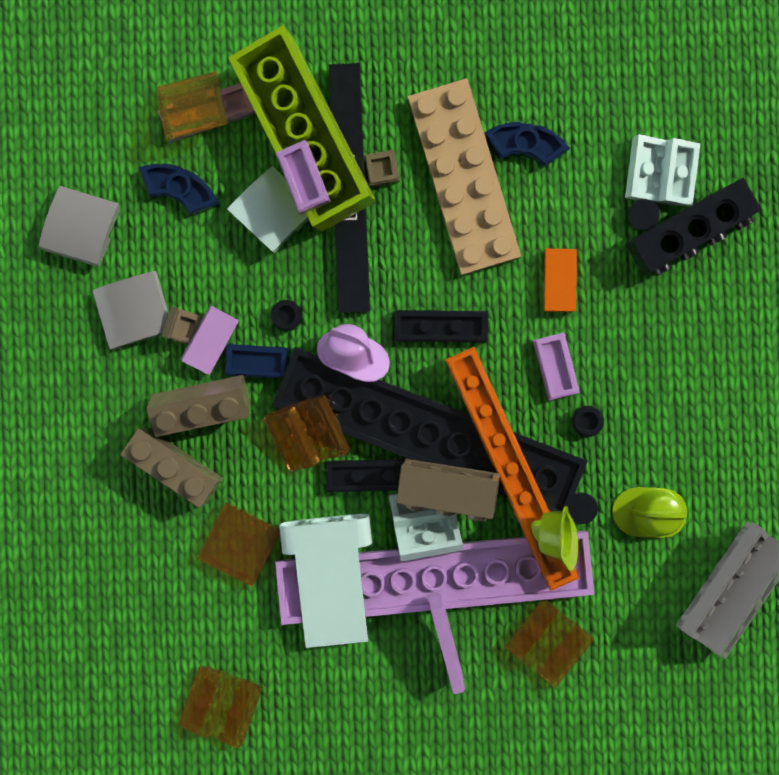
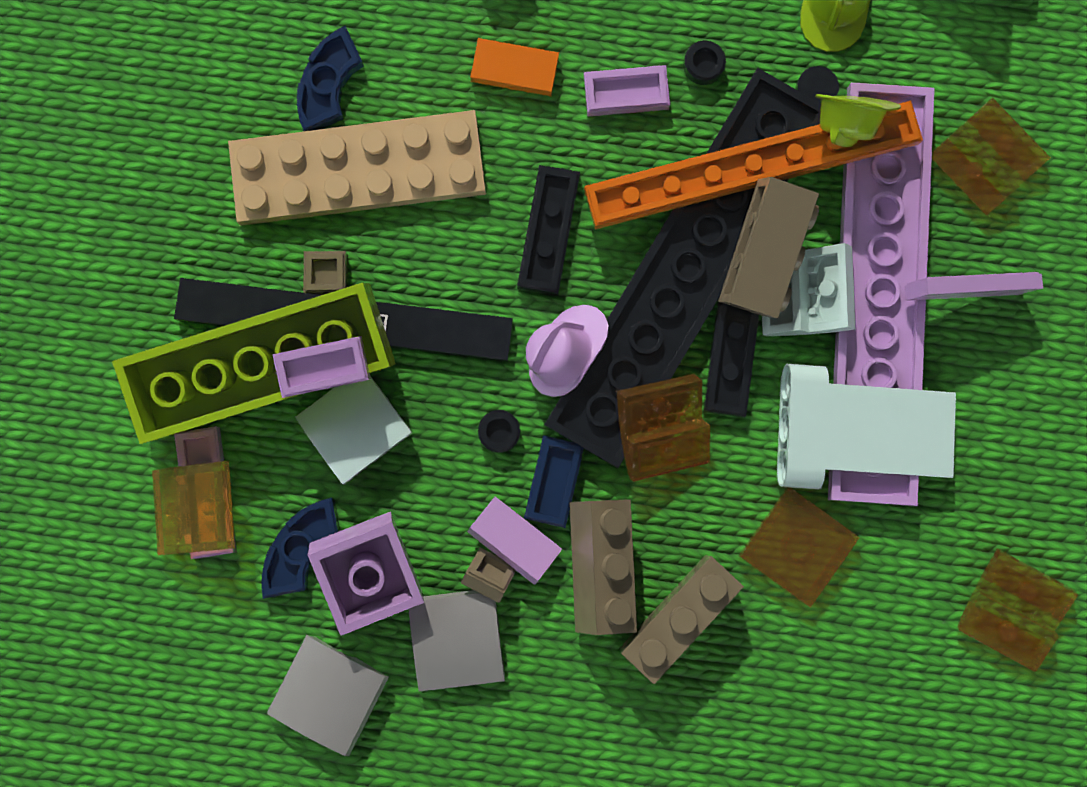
camera: 80 degrees left, 5 degrees down
(165, 236) = (365, 573): none -> lavender brick

